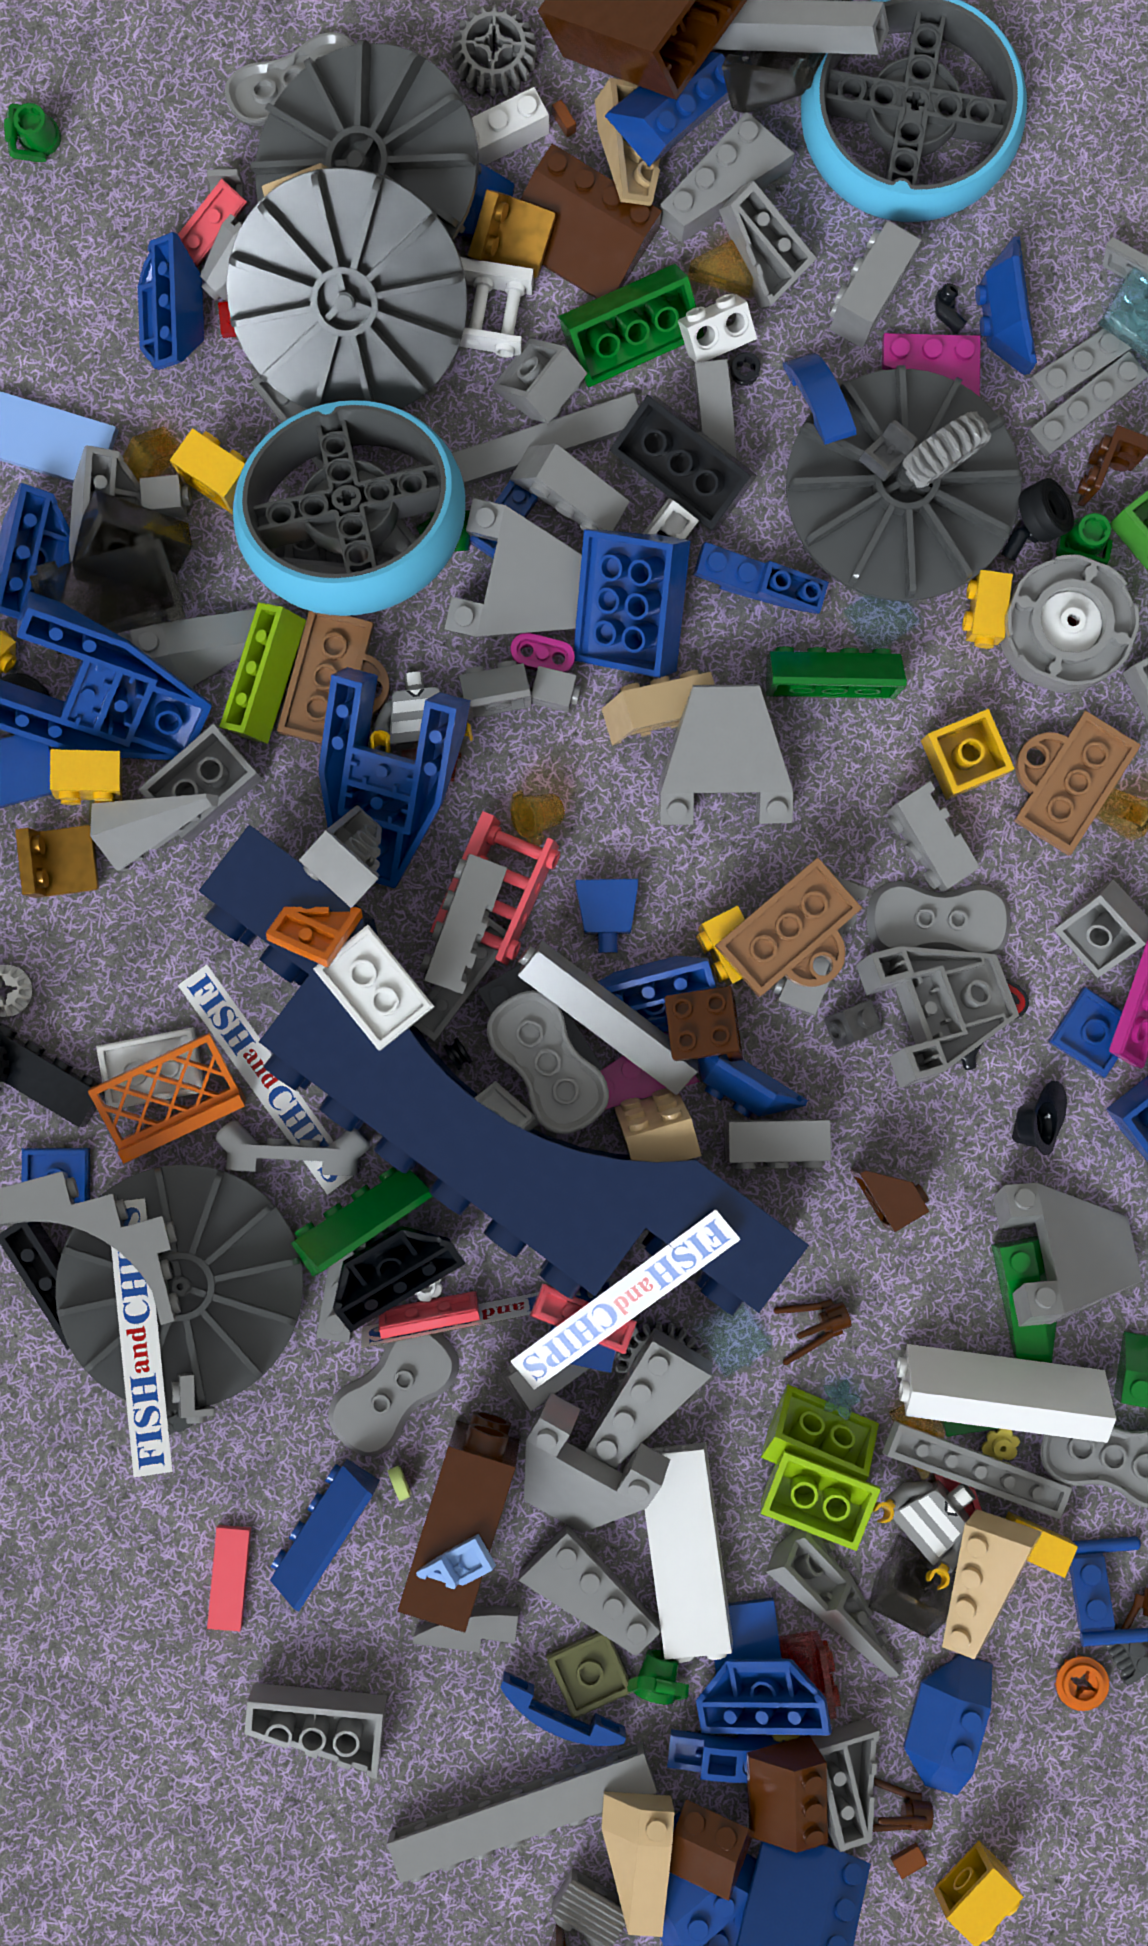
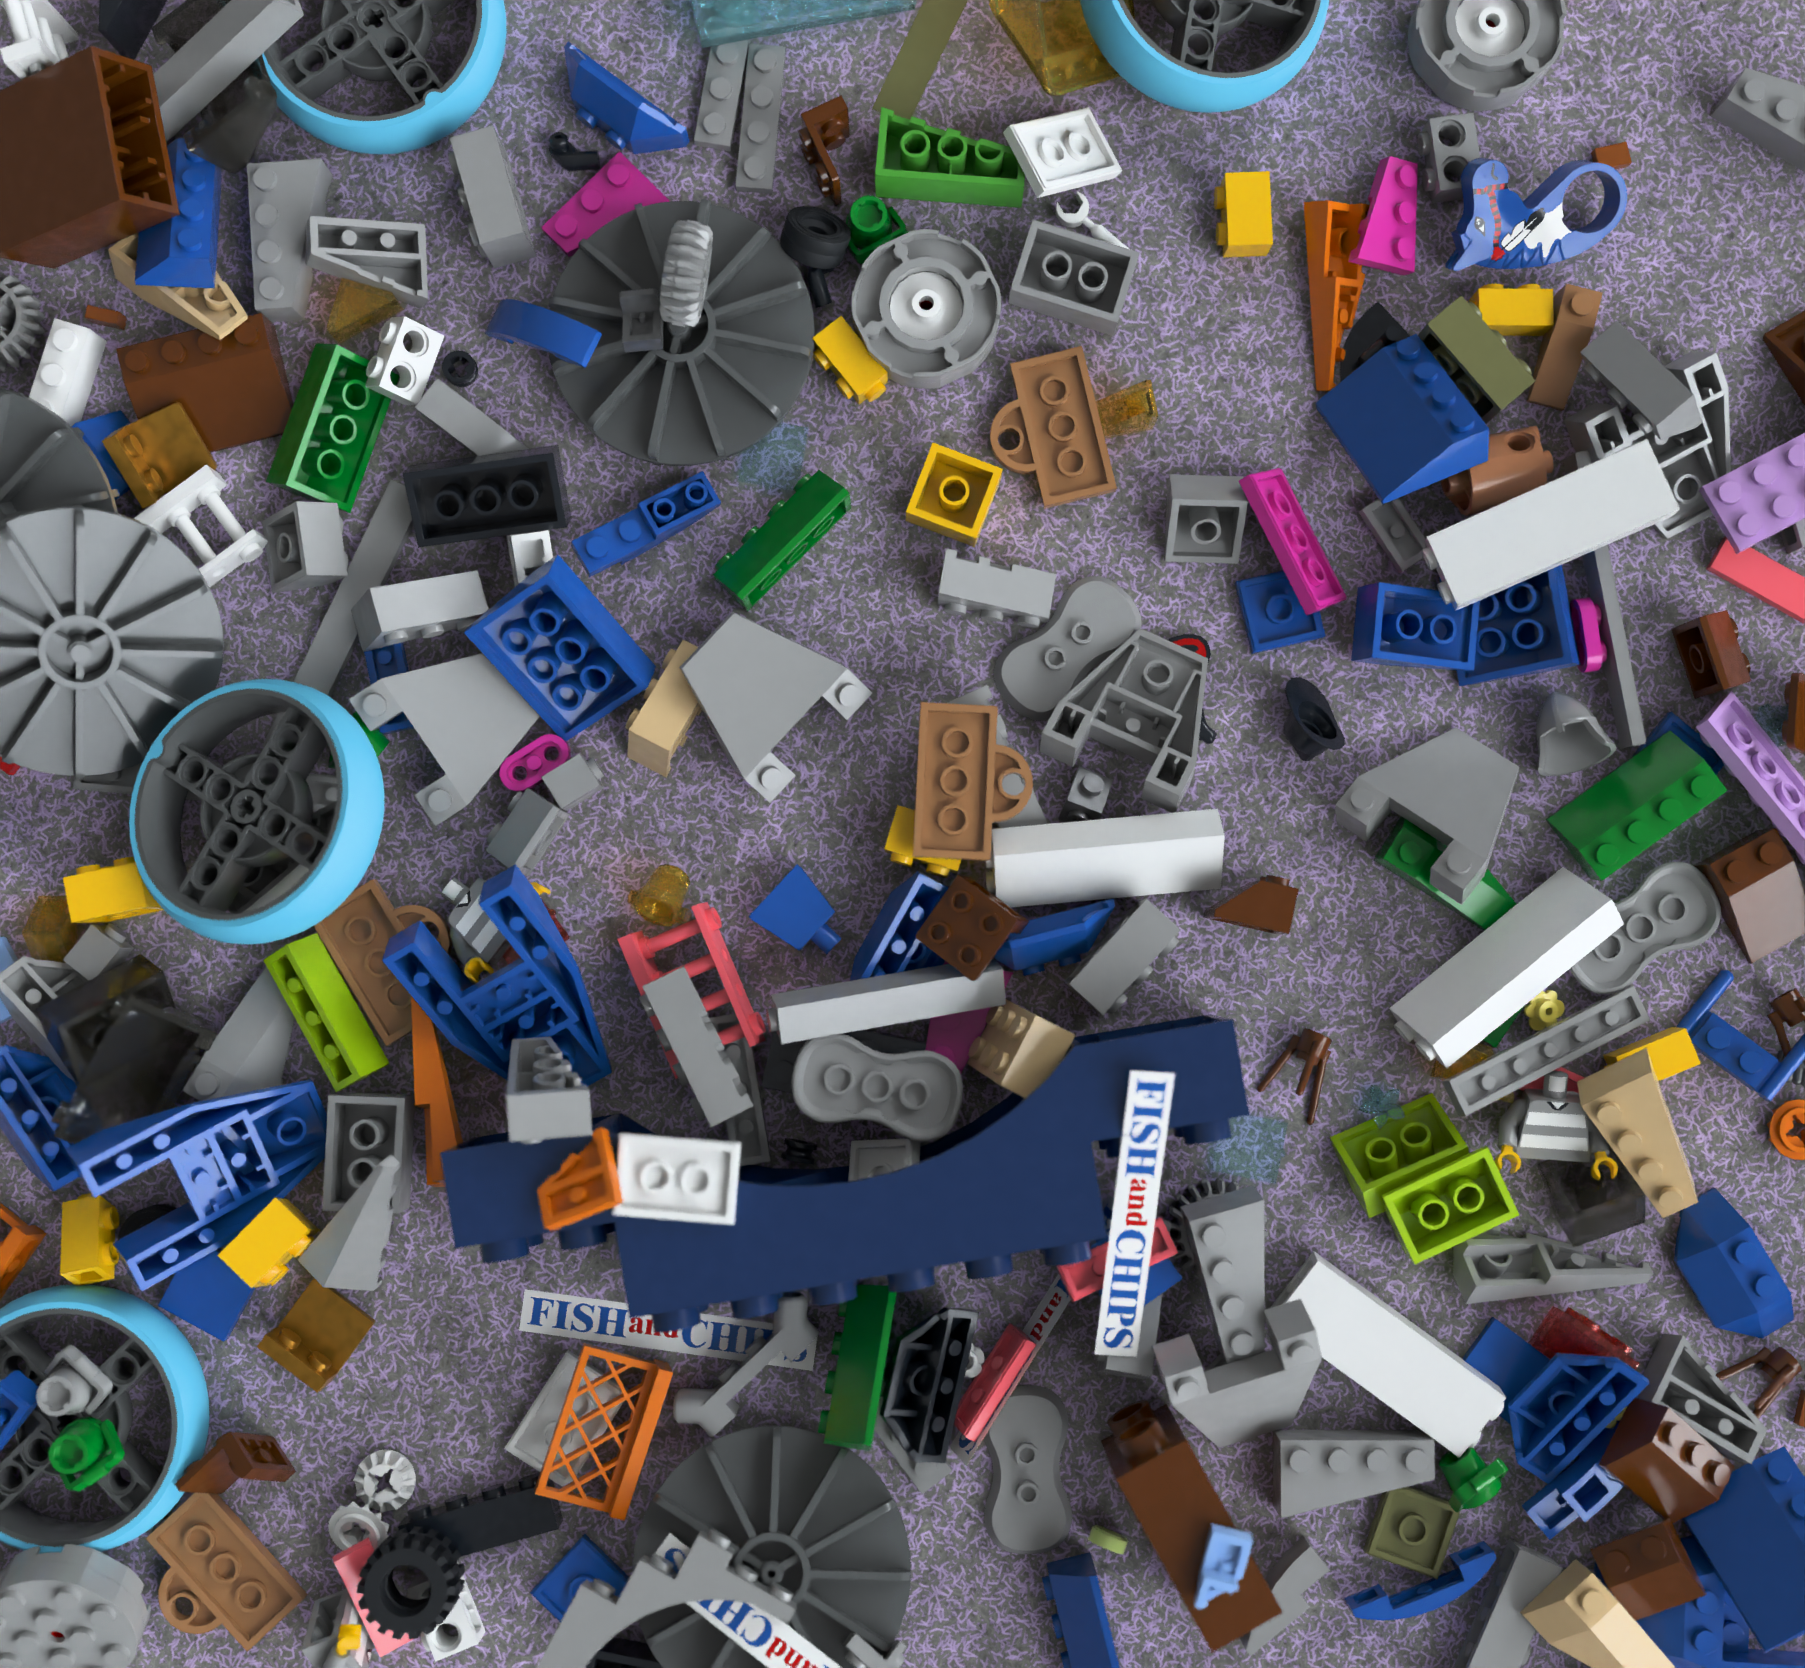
camera: 40 degrees left, 0 degrees up
(275, 788) = (433, 1094): none -> orange wedge
(830, 1072) = (1106, 858): none -> white brick

